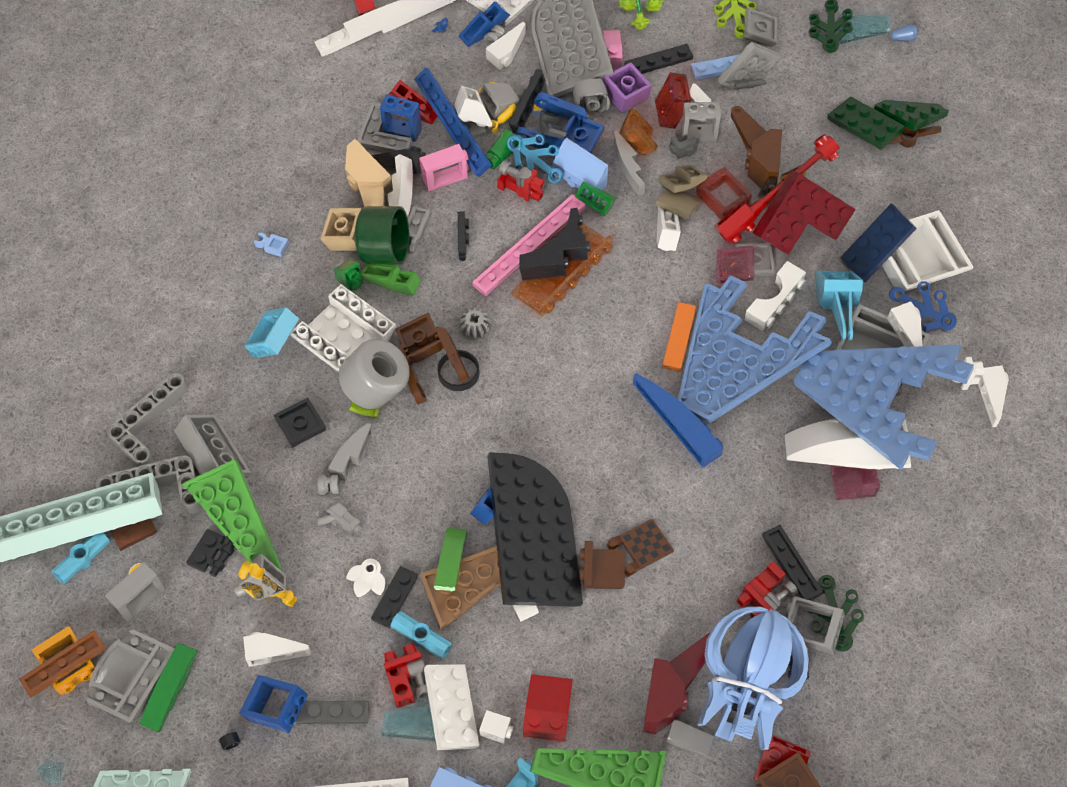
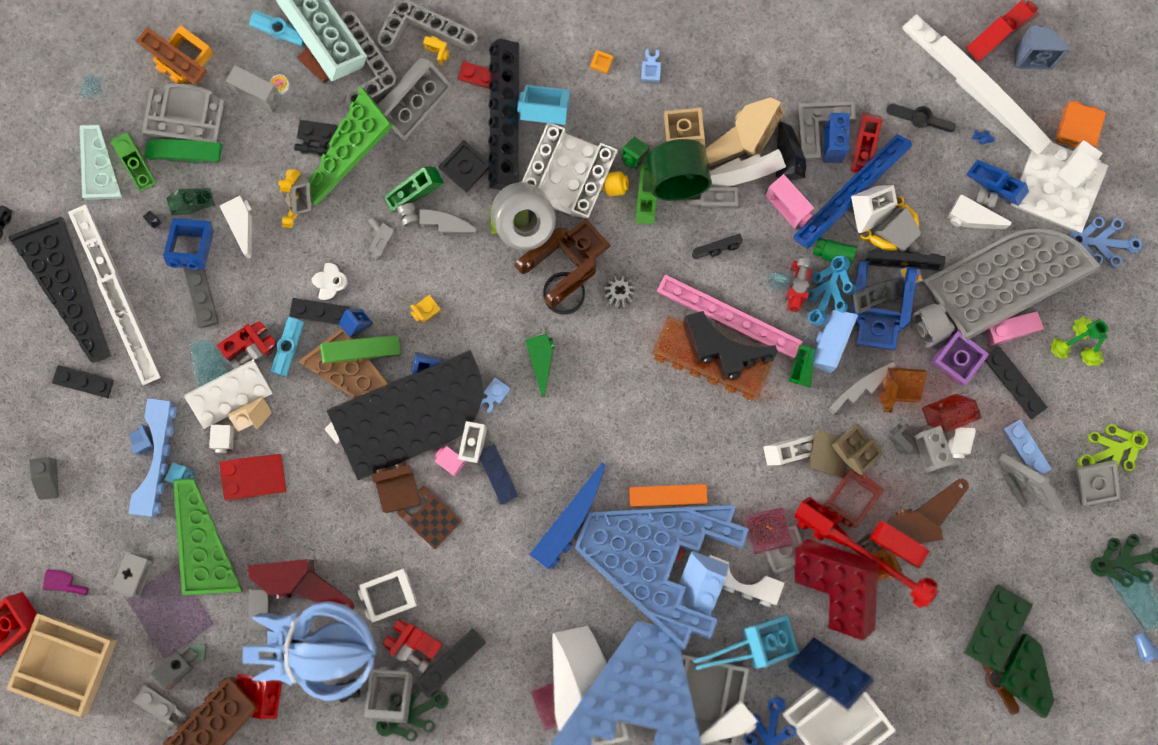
camera: 75 degrees right, 20 degrees up
(153, 744) = (133, 160): none -> bright green slope
(169, 414) = (436, 45): none -> yellow bracket
(214, 389) = (474, 74): none -> red plate
(226, 694) = (189, 200): none -> clear green slope
(248, 283) = (601, 62): none -> light orange tile
(265, 372) = (505, 51): none -> black brick
(304, 474) = (414, 188): none -> green slope
(372, 296) = (615, 184): none -> yellow head
(403, 67) = (910, 115): none -> black piece
(420, 561) = (354, 321): none -> blue slope
(429, 496) = (425, 309): none -> yellow bracket
(479, 690) = (250, 414): none -> tan slope
(511, 196) = (777, 280): none -> clear light blue slope
(514, 404) = (541, 357): none -> green slope
(536, 453) = (496, 393): none -> light blue plate
(578, 481) = (472, 442): none -> white slope
(590, 510) = (449, 460): none -> bright pink brick
(615, 474) = (498, 474): none -> dark blue plate
(707, 583) = (407, 590): none -> white window
(770, 314) = (703, 582): none -> light blue slope
(779, 157) = (899, 544): none -> red beam

